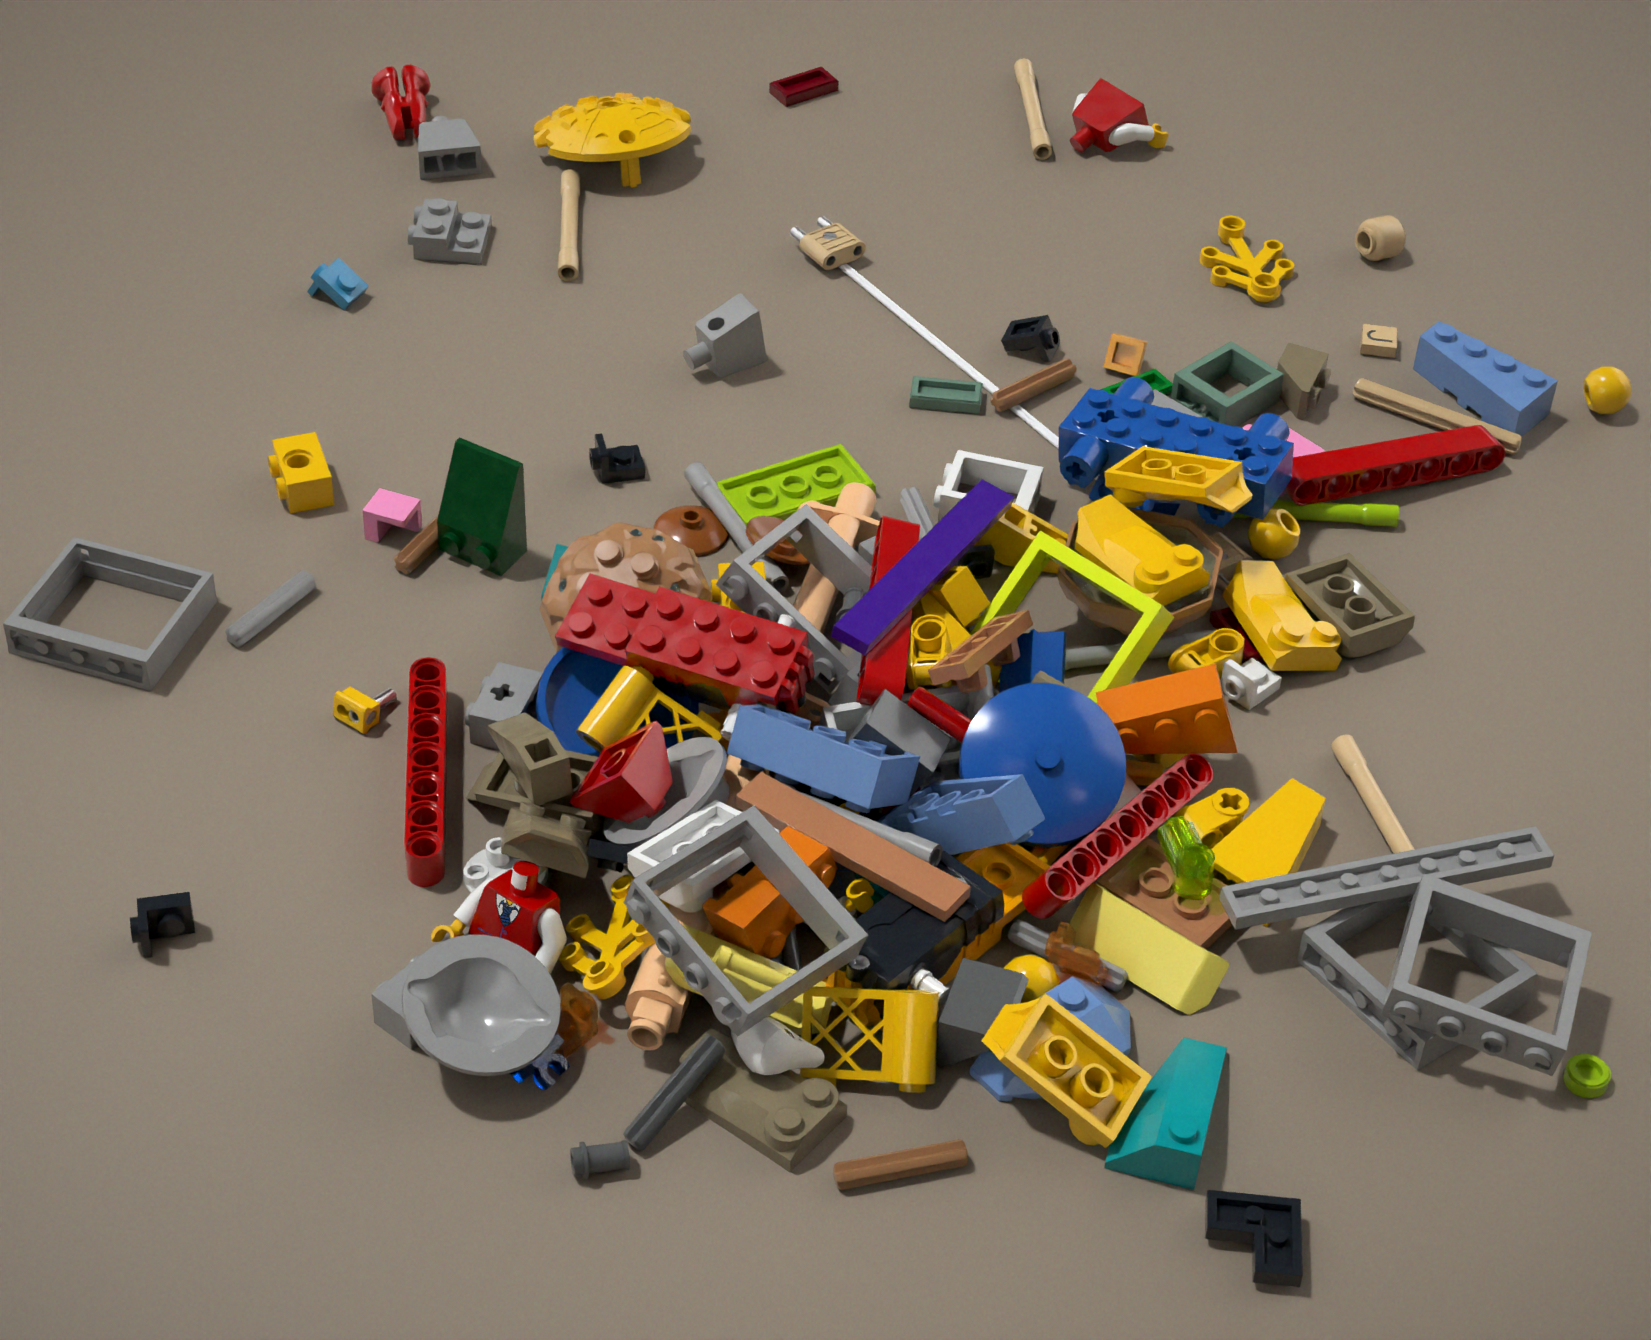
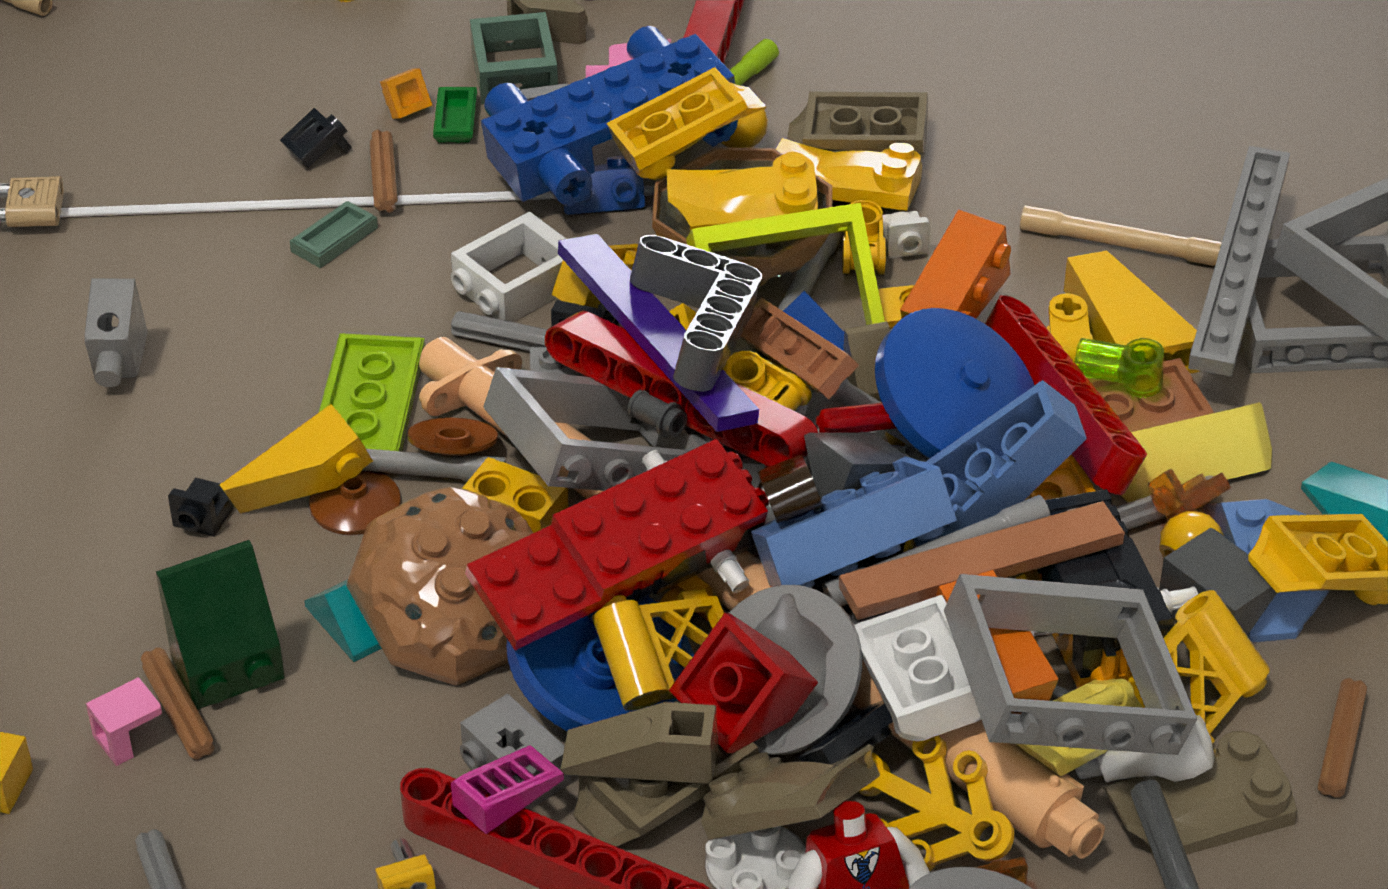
camera: 55 degrees left, 0 degrees up
(427, 692) = (491, 811): none -> dark pink slope
(679, 479) = (304, 463): none -> yellow slope
(811, 701) = (790, 488): none -> dark brown beam
(987, 583) = (715, 285): none -> dark grey beam

